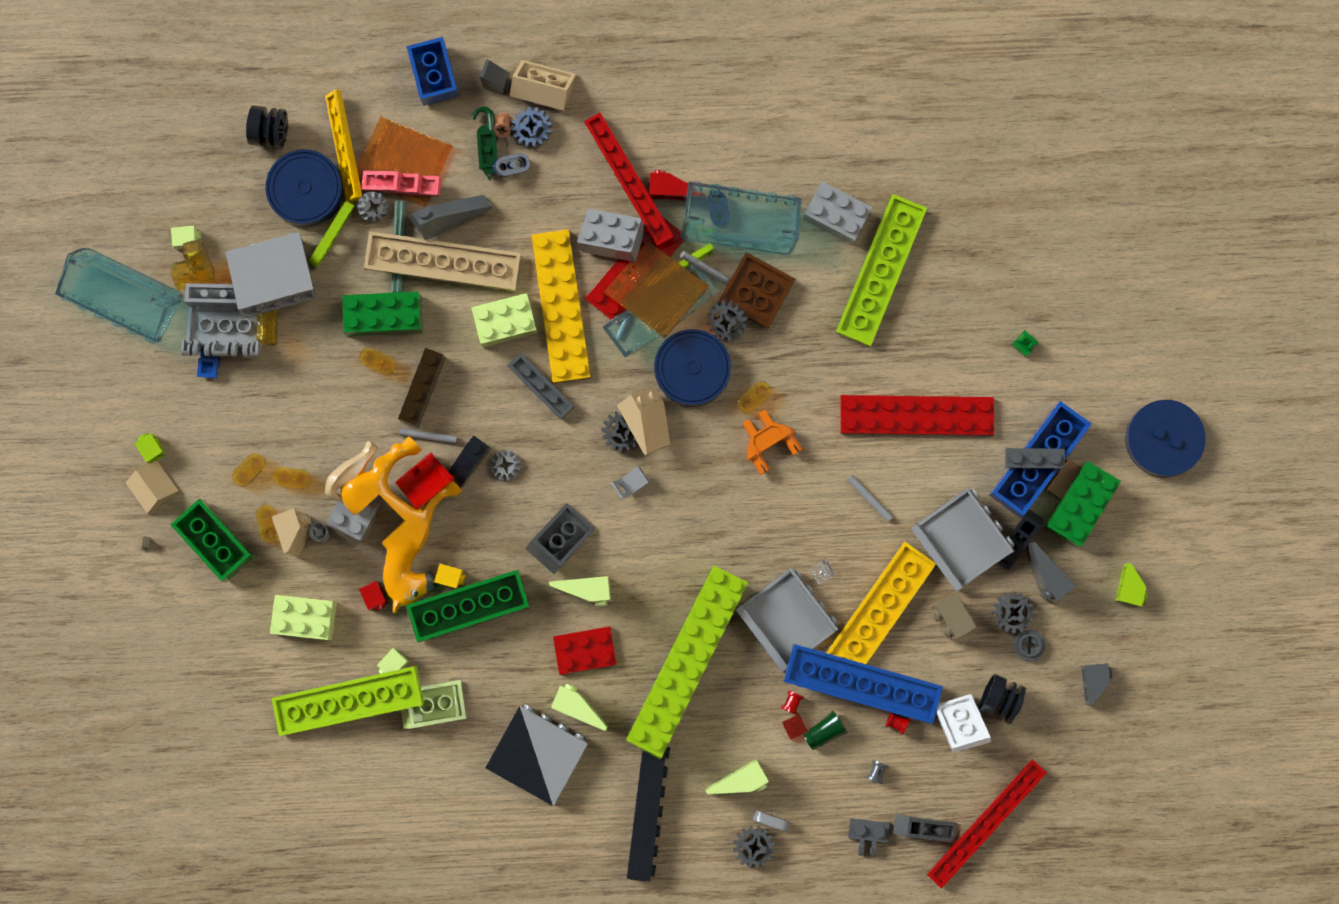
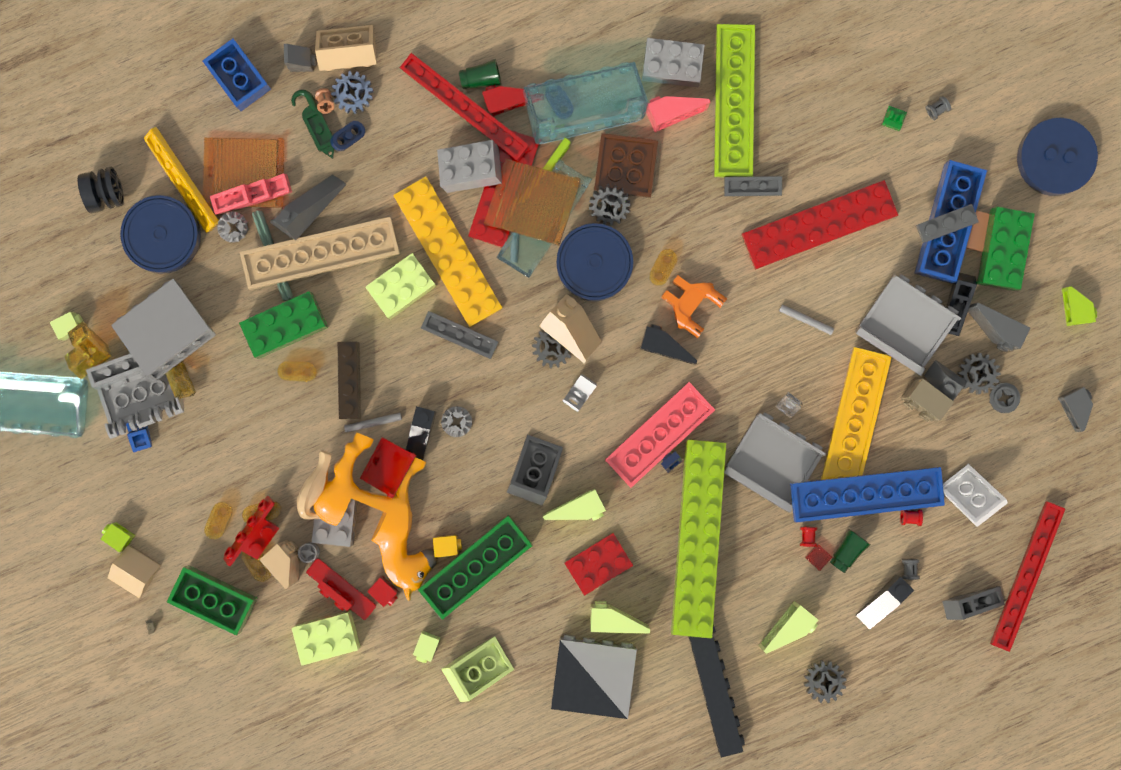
camera: 30 degrees left, 5 degrees up
(276, 496) = (255, 535): none -> red bracket
(331, 234) = (204, 268): lime beam -> none
(334, 579) = (340, 590): none -> red bracket
(348, 701) = (400, 698): lime plate -> none
(655, 157) = (480, 75): none -> dark green plant
(690, 551) = (659, 434): none -> coral plate
(690, 581) = (670, 461): none -> dark blue plate
(704, 267) = (569, 163): light grey bar -> none
(724, 466) = (663, 344): none -> black slope
(771, 820) = (838, 651): light grey beam -> none
(816, 255) = (671, 110): none -> coral slope
(840, 793) = (885, 601): none -> slope
(867, 355) = (753, 186): none -> dark grey plate
(868, 830) = (923, 625): dark grey hinge -> none
(978, 606) = (945, 380): none -> dark grey slope
(1006, 700) = (1000, 458): black wheel -> none
(1070, 349) = (938, 108): none -> dark grey bush

